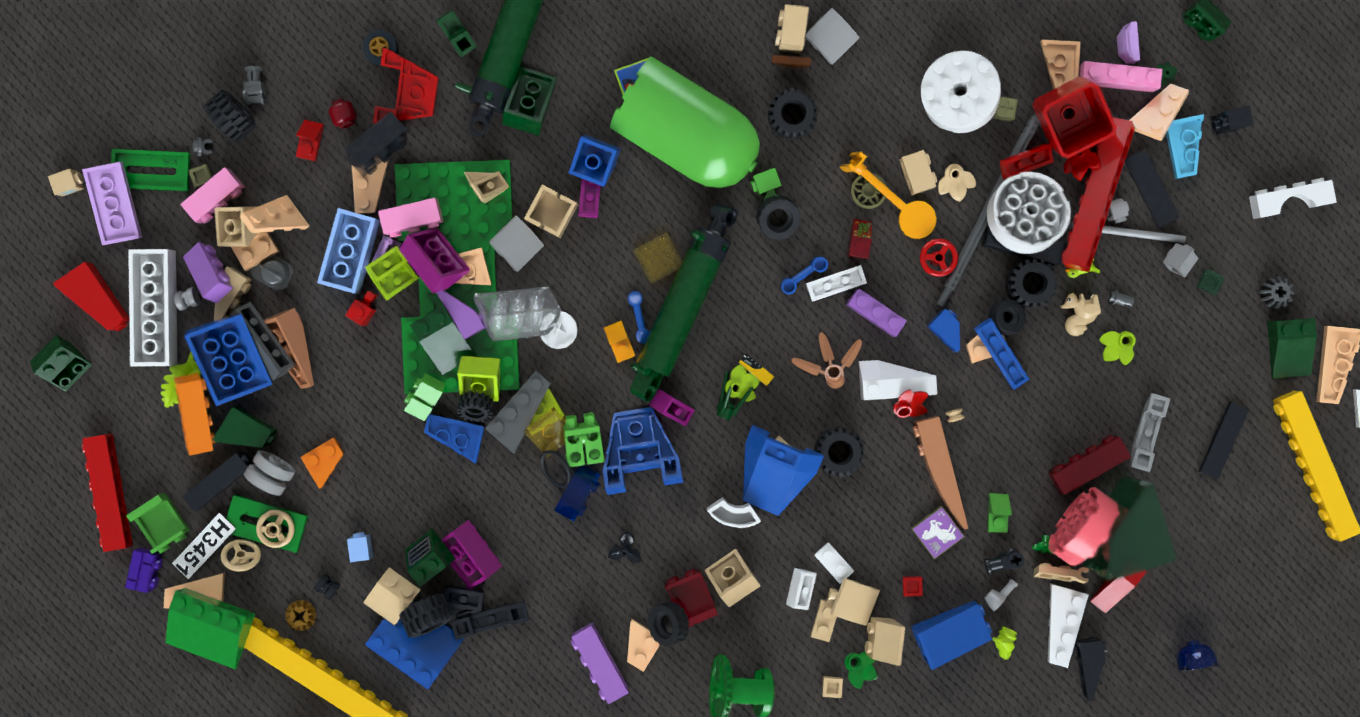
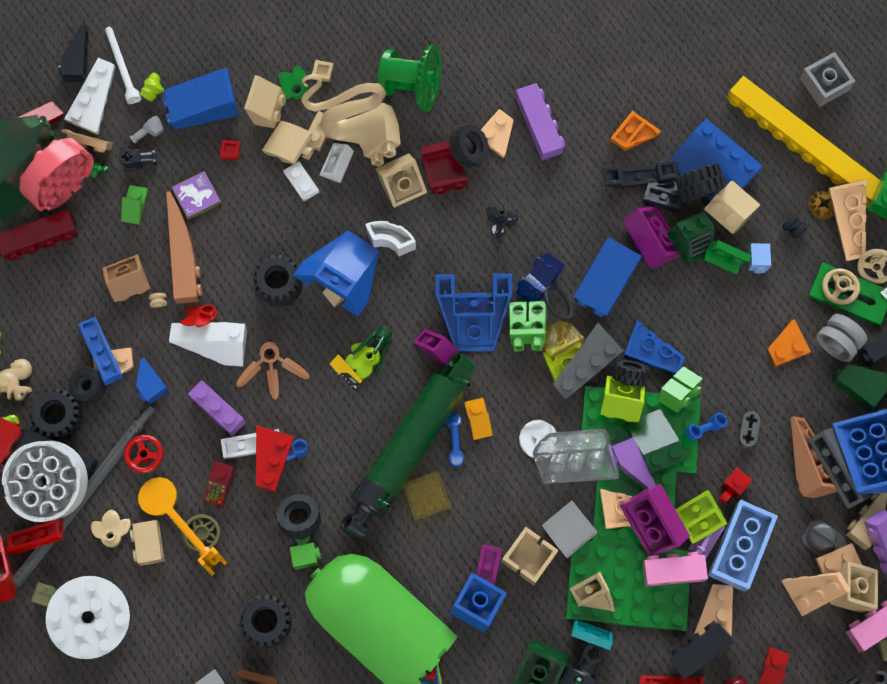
camera: 175 degrees left, 15 degrees down
(271, 603) = (850, 216): none -> light nougat wing
(348, 369) = (753, 430): none -> dark grey beam
(389, 370) = (714, 423): none -> blue bar
(393, 542) = (725, 256): none -> green bracket
(482, 145) = (592, 634): none -> teal tile
(501, 666) = (634, 132): none -> orange wing
(509, 503) = (607, 277): none -> blue slope
(775, 631) = (374, 130): none -> tan hips
(814, 271) = (271, 456): none -> red wing
(991, 433) = (126, 278): none -> medium nougat slope
(1024, 631) = (132, 95): none -> white piece

